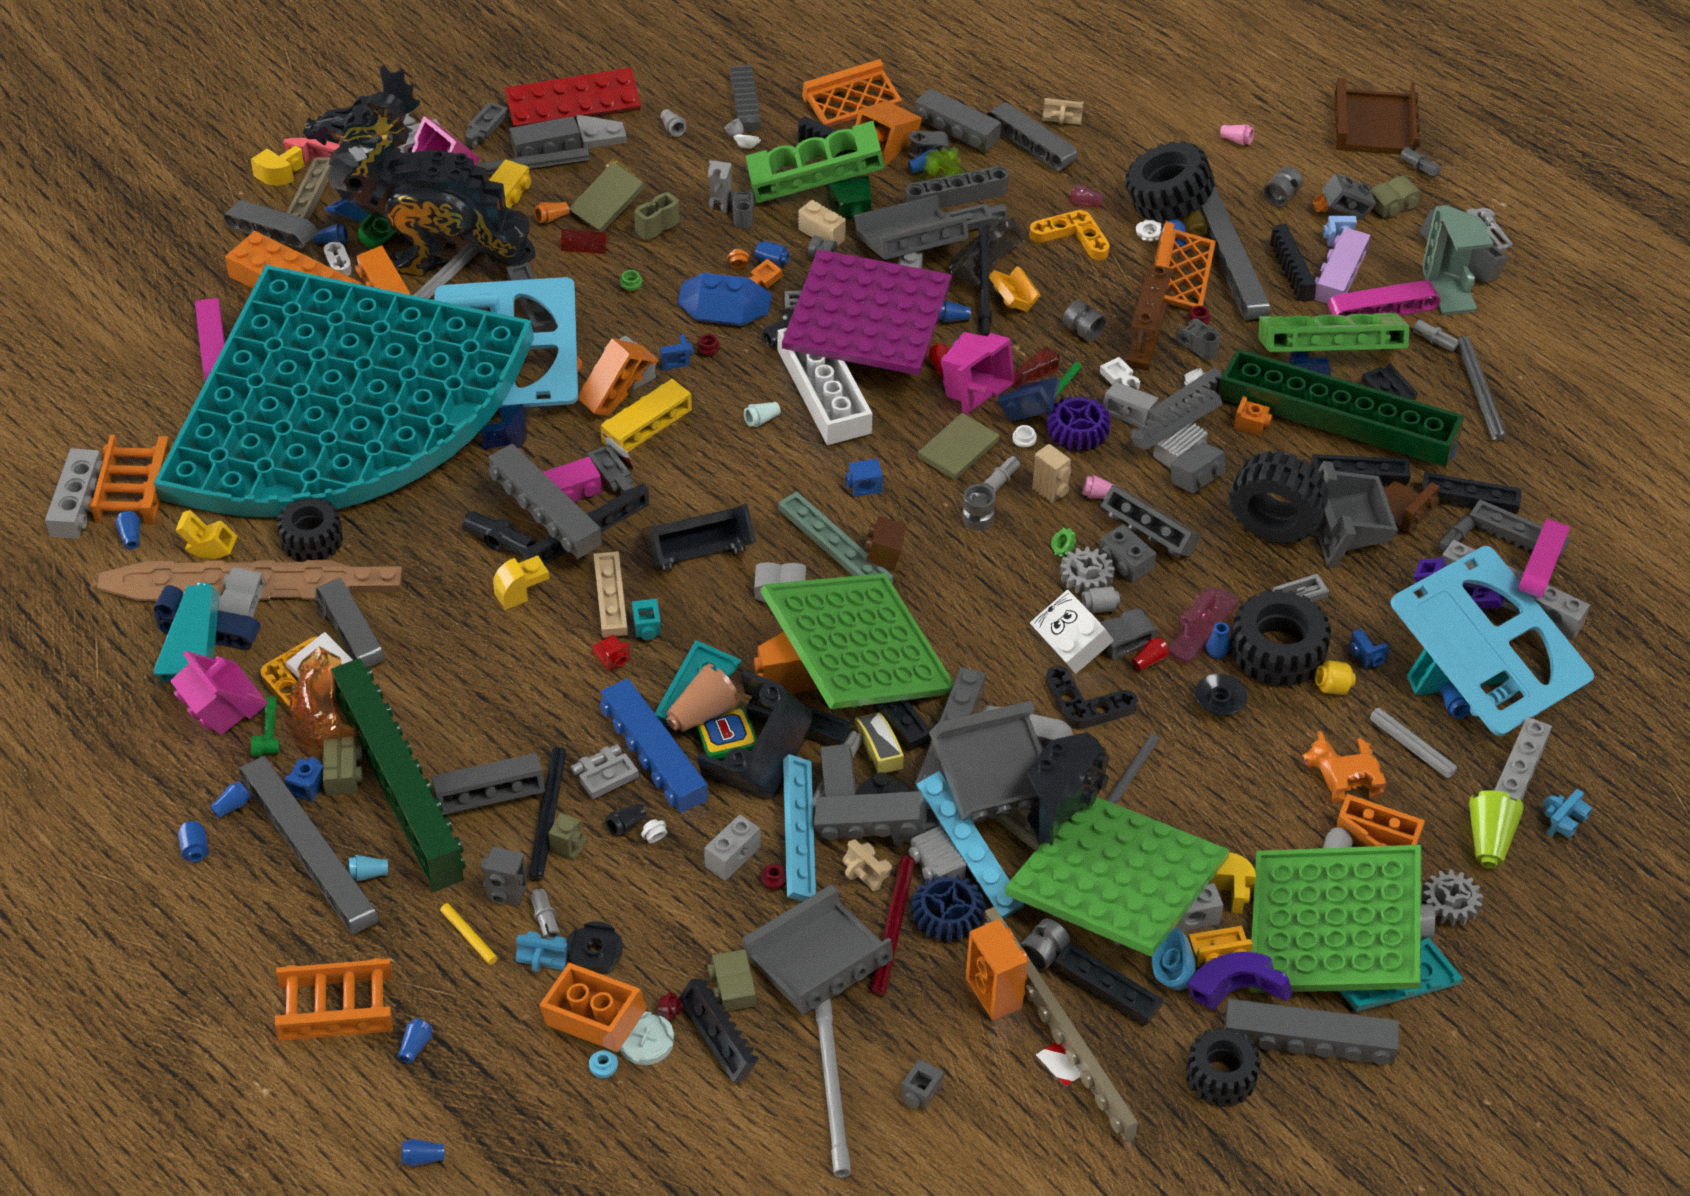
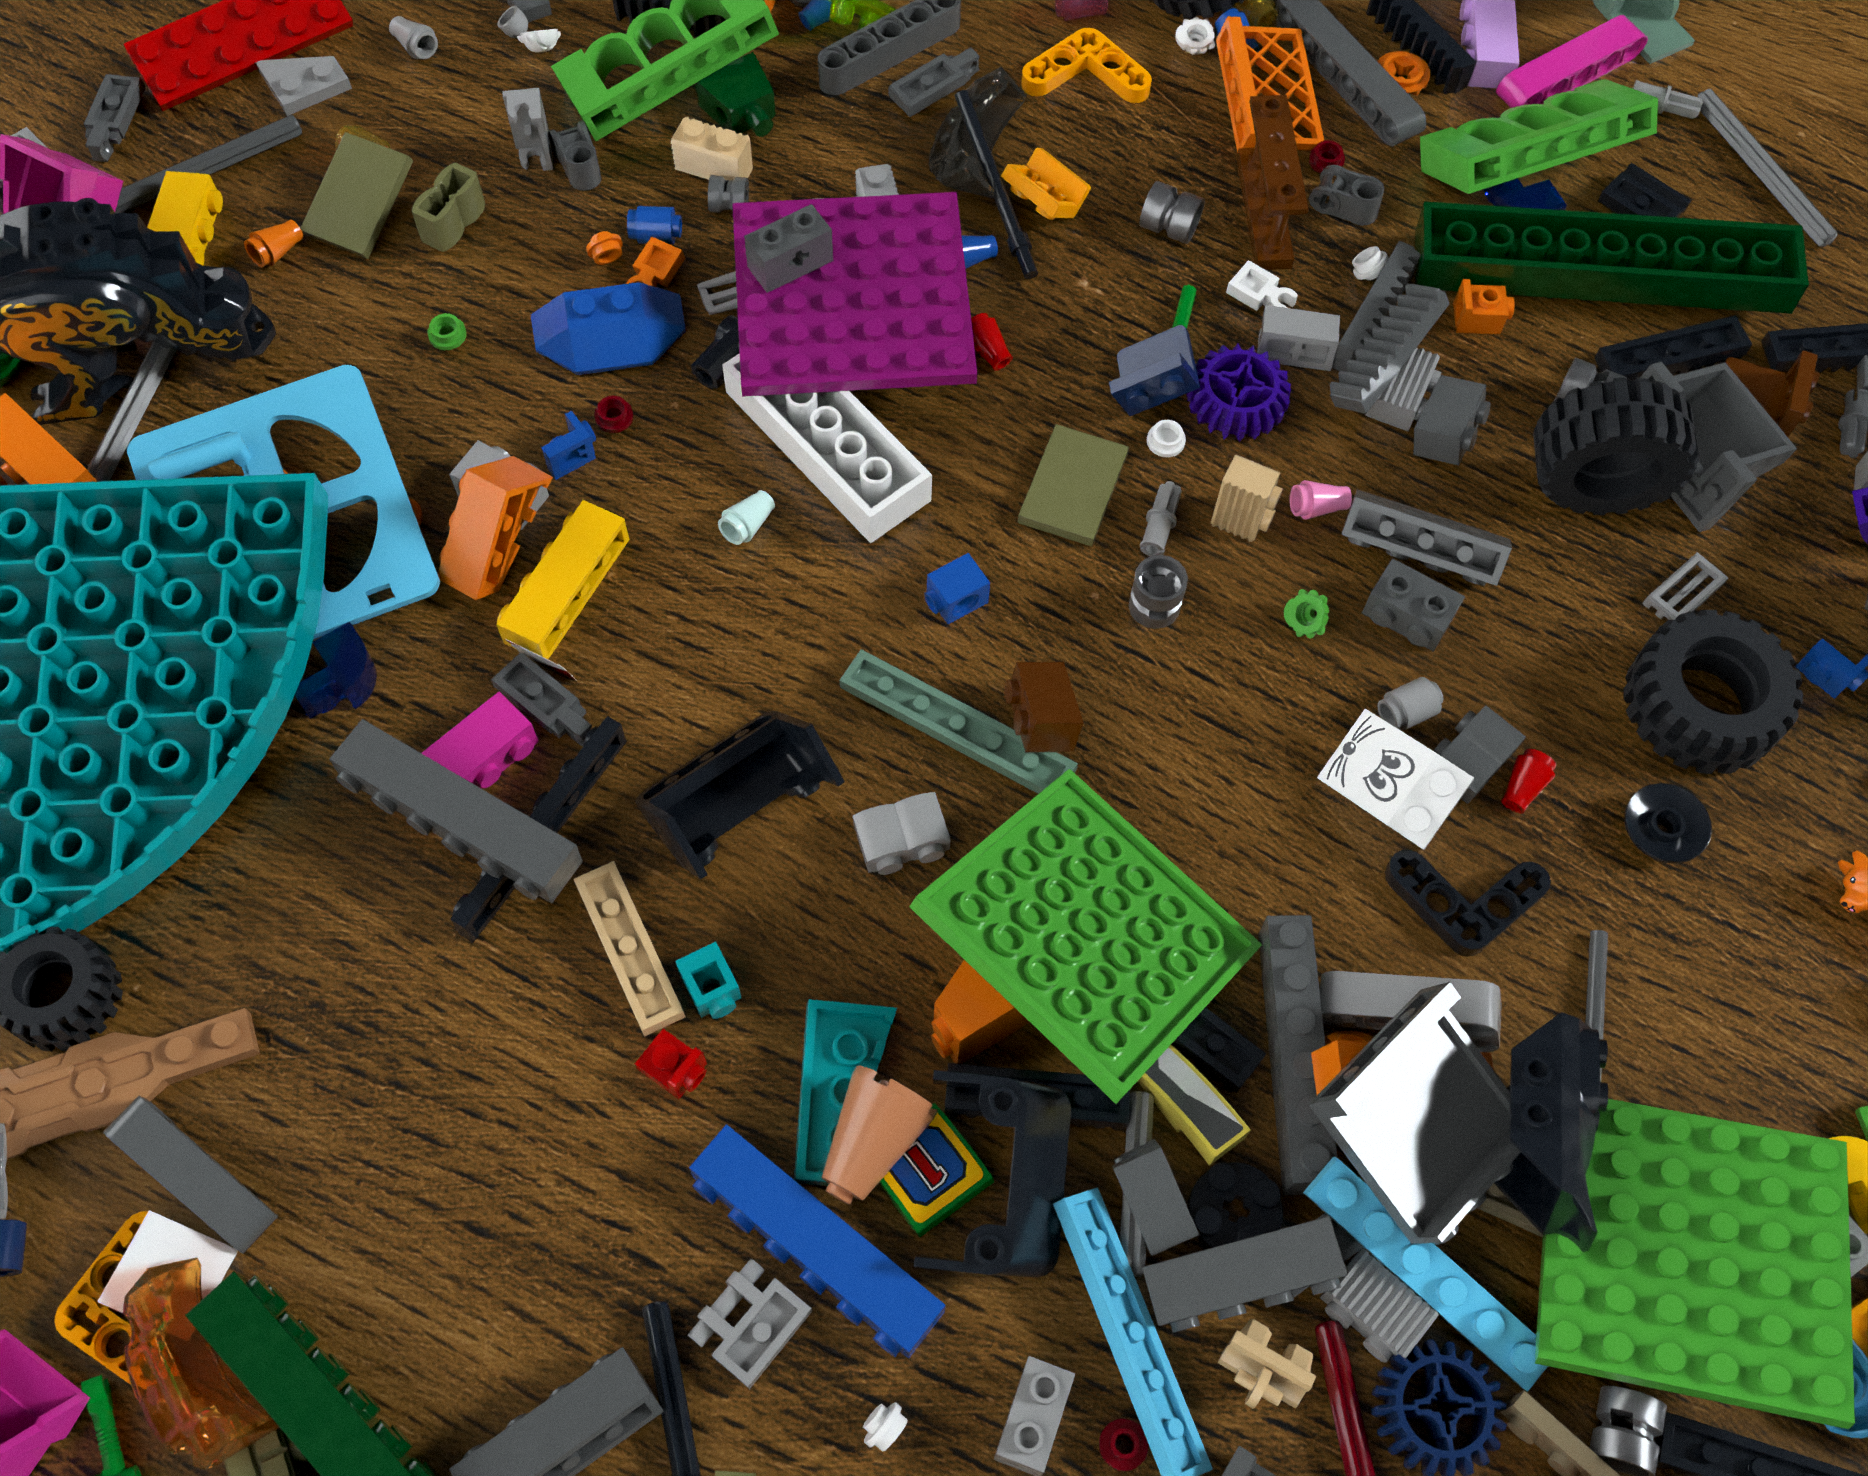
camera: 20 degrees left, 15 degrees up
(497, 533) = (393, 886): black piece -> none
(513, 579) = (456, 978): yellow brick -> none
(541, 319) = (320, 445): dark grey gear -> none
(545, 137) = (219, 114): dark grey brick -> none
(583, 241) = (345, 281): clear red hinge -> none
(623, 820) = (824, 1419): black cone -> none
(836, 276) = (789, 248): none -> dark grey brick
(909, 227) = (851, 127): dark grey panel -> none
(977, 369) = (1055, 343): dark pink piece -> none
(1037, 367) = (1140, 306): clear red slope -> none
(1086, 570) = (1366, 656): light grey gear -> none
(1199, 622) = (1578, 698): clear pink bracket -> none
(1218, 643) = (1620, 725): blue cone -> none
(1277, 277) = (1407, 64): none -> orange gear
(1335, 677) = (1817, 735): yellow head -> none

